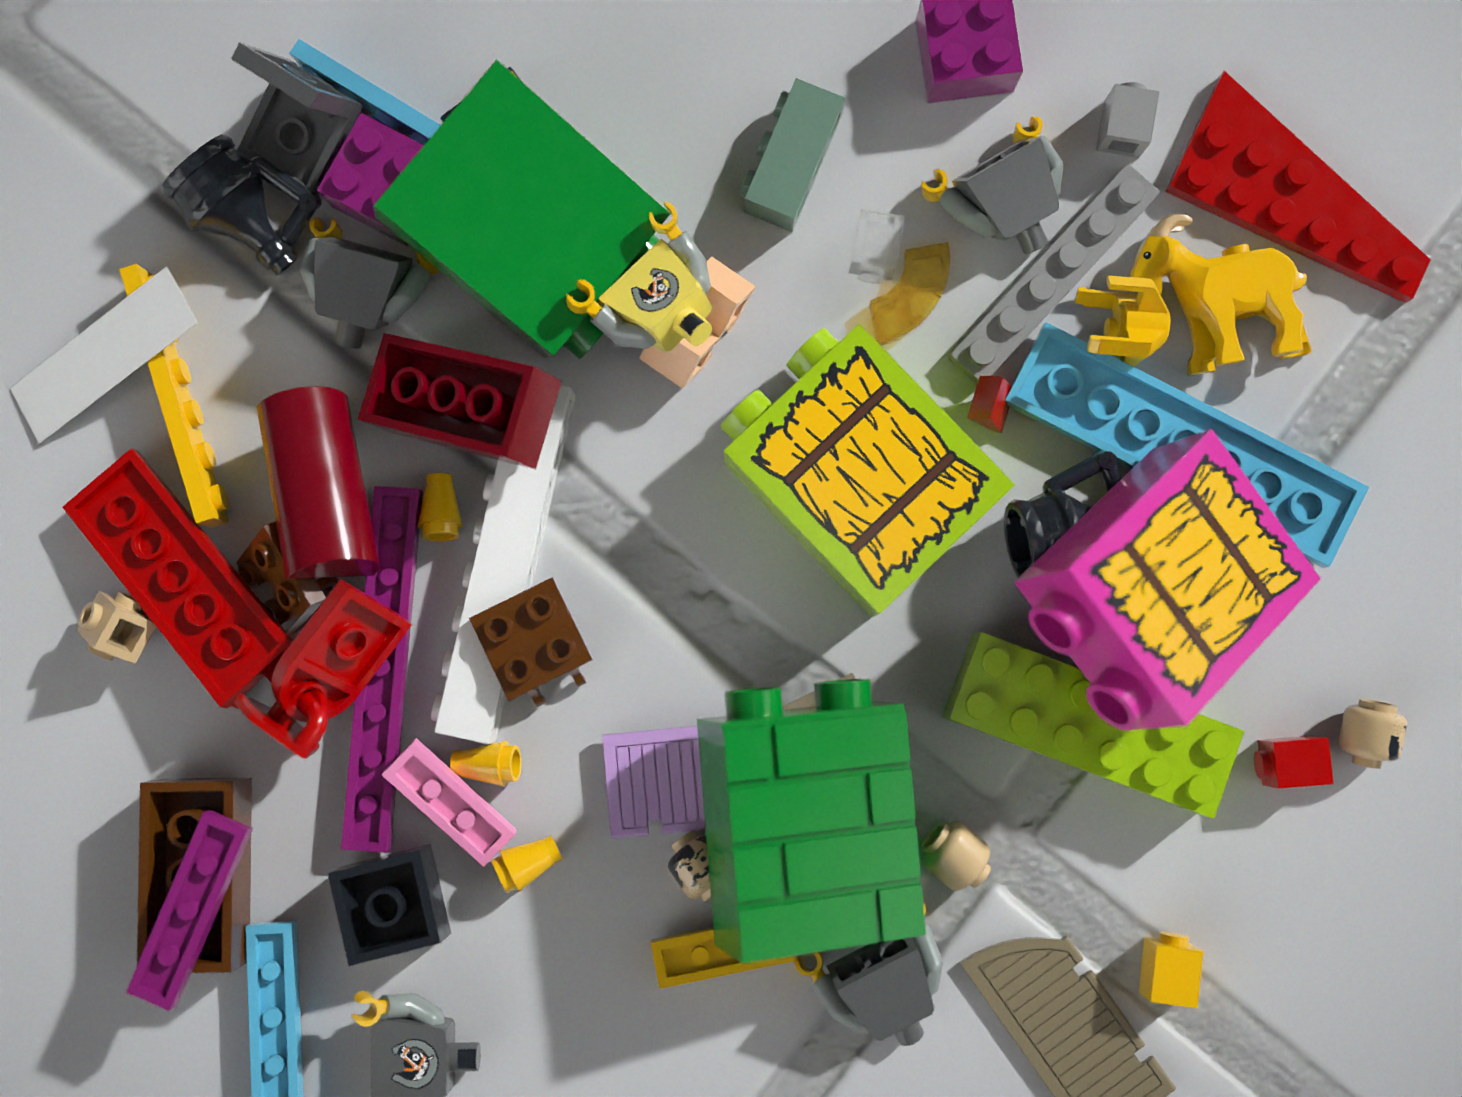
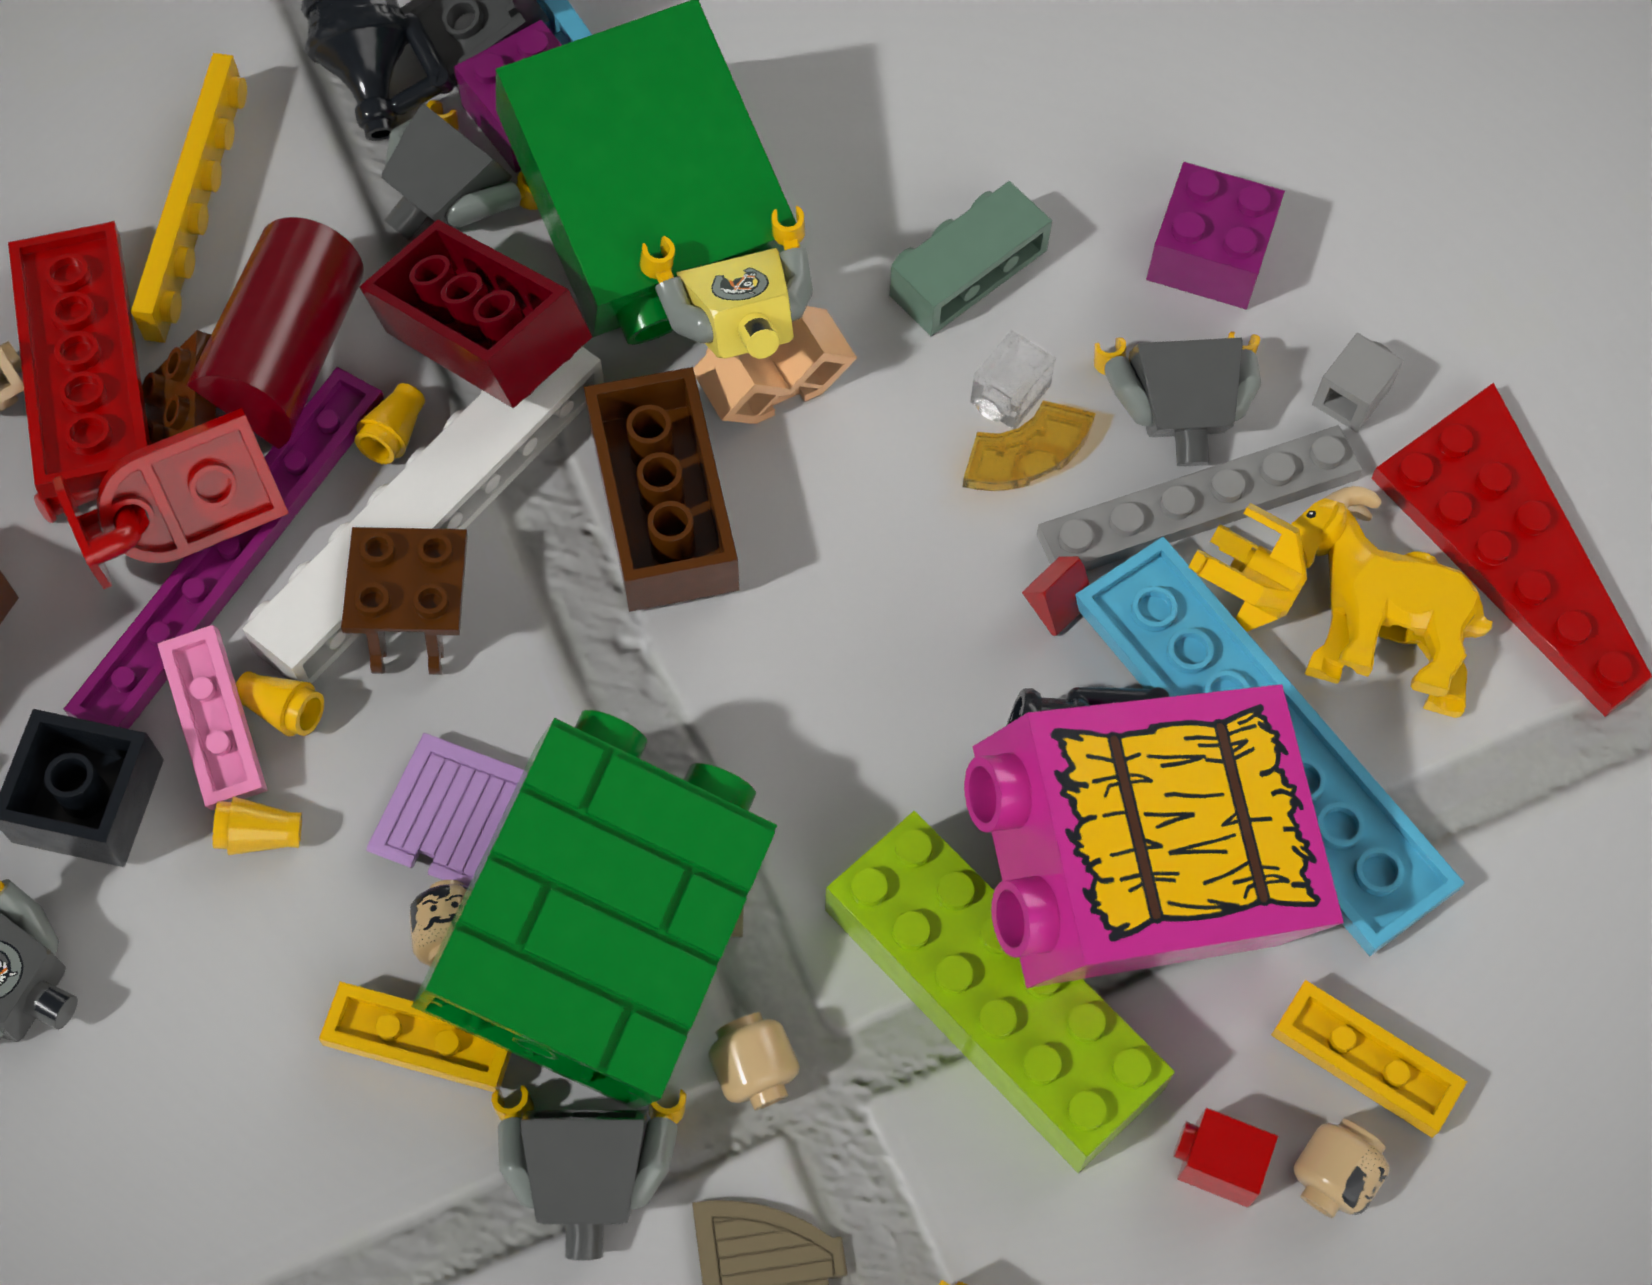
camera: 20 degrees right, 20 degrees down
(104, 354) = (145, 123): white sticker -> none
(669, 466) = (662, 489): none -> reddish brown brick
(861, 466) = (873, 585): brick -> none
(1355, 644) = (1369, 1059): none -> yellow plate

